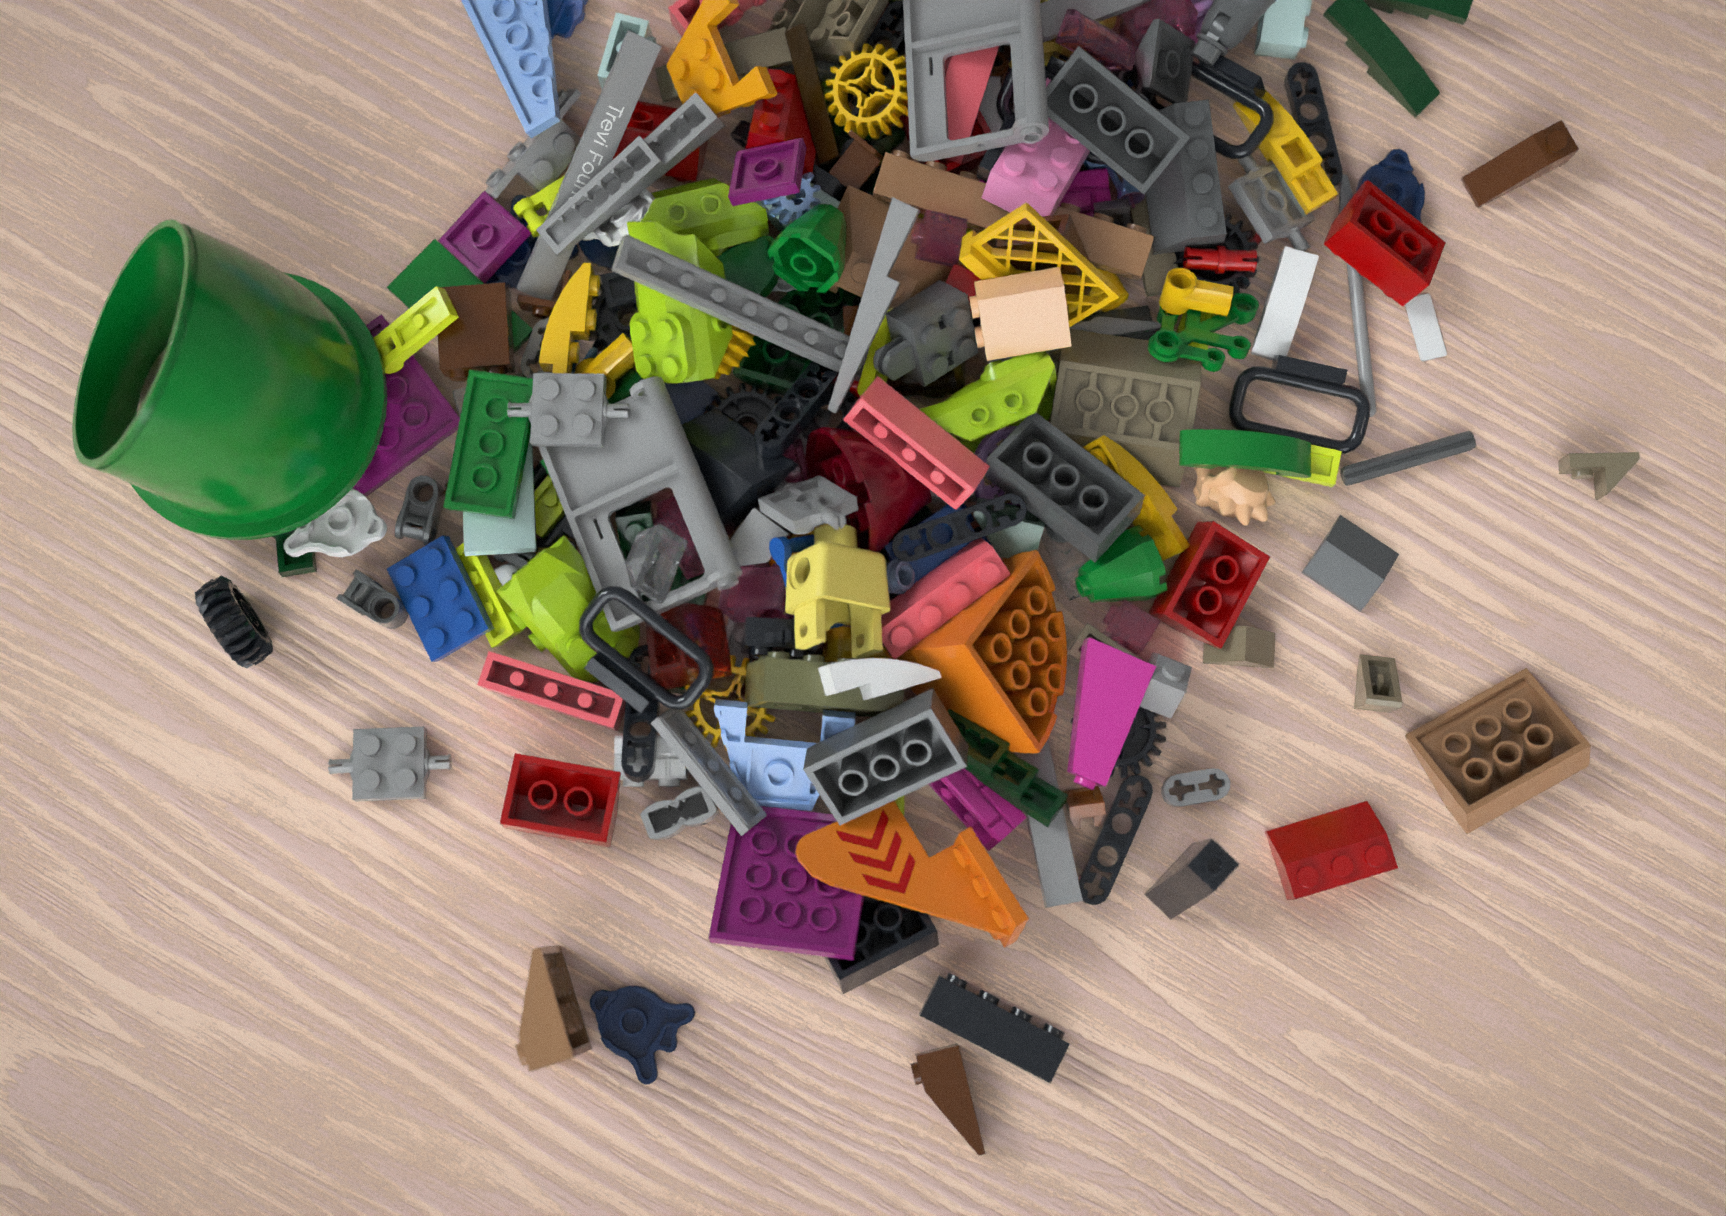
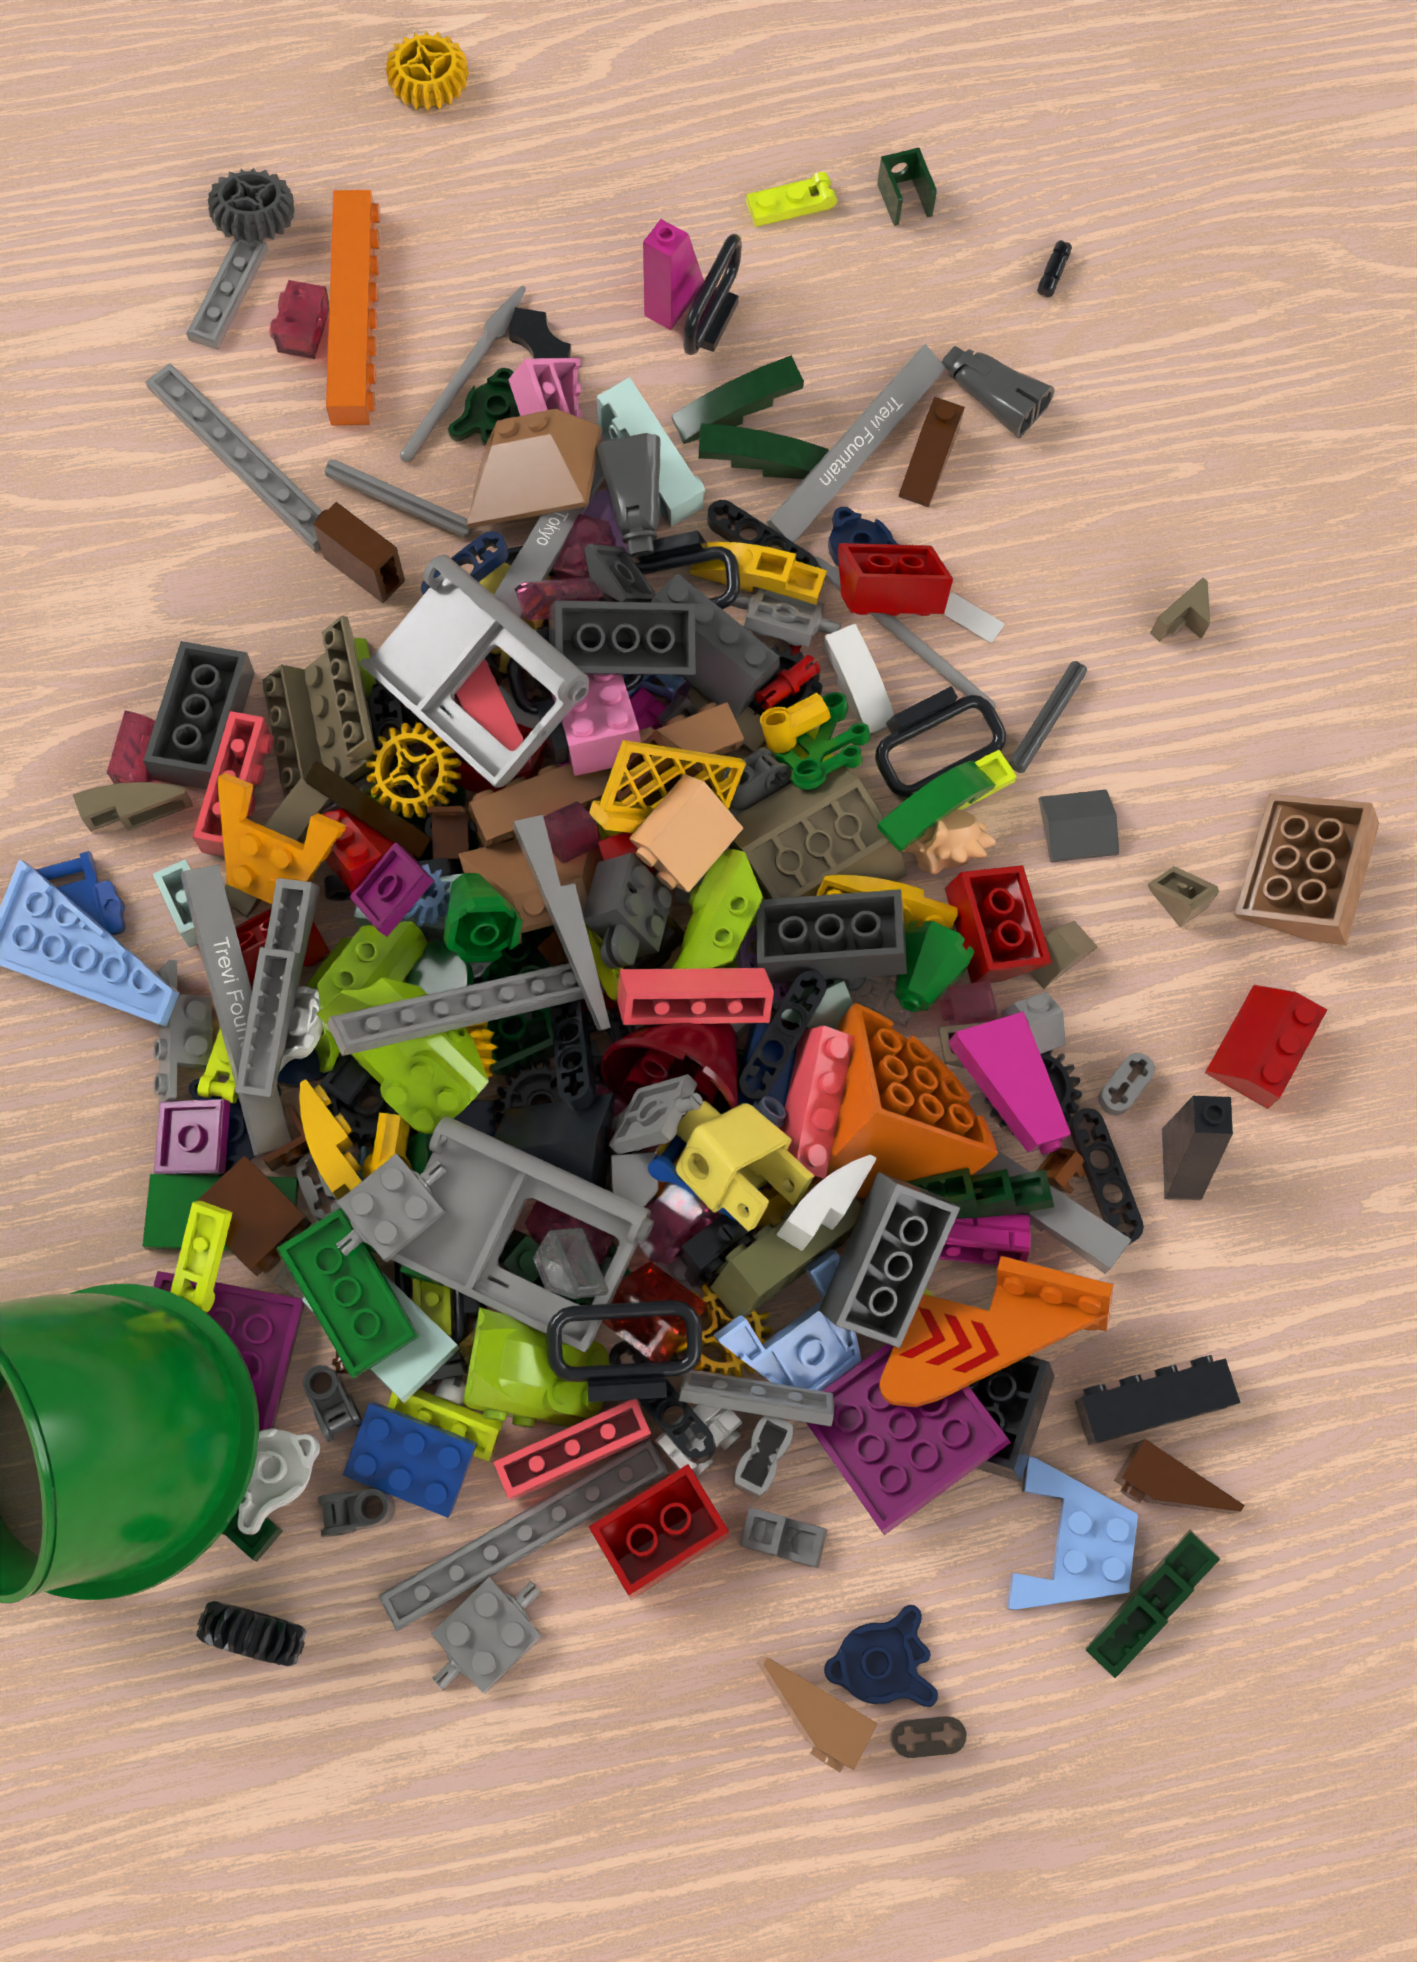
camera: 45 degrees left, 10 degrees down
(474, 719) = (522, 1534): none -> light grey tile
(618, 1108) = (928, 1747): none -> clear smoke beam
(646, 881) = (783, 1537): none -> flat silver slope
(853, 1083) = (1091, 1543): none -> light blue wing
(860, 1158) = (1152, 1603): none -> dark green slope
(1126, 315) = (757, 778): none -> dark grey piece
(1466, 107) = (856, 444): none -> light grey tile
(1630, 164) = (1008, 394): none -> dark grey piece

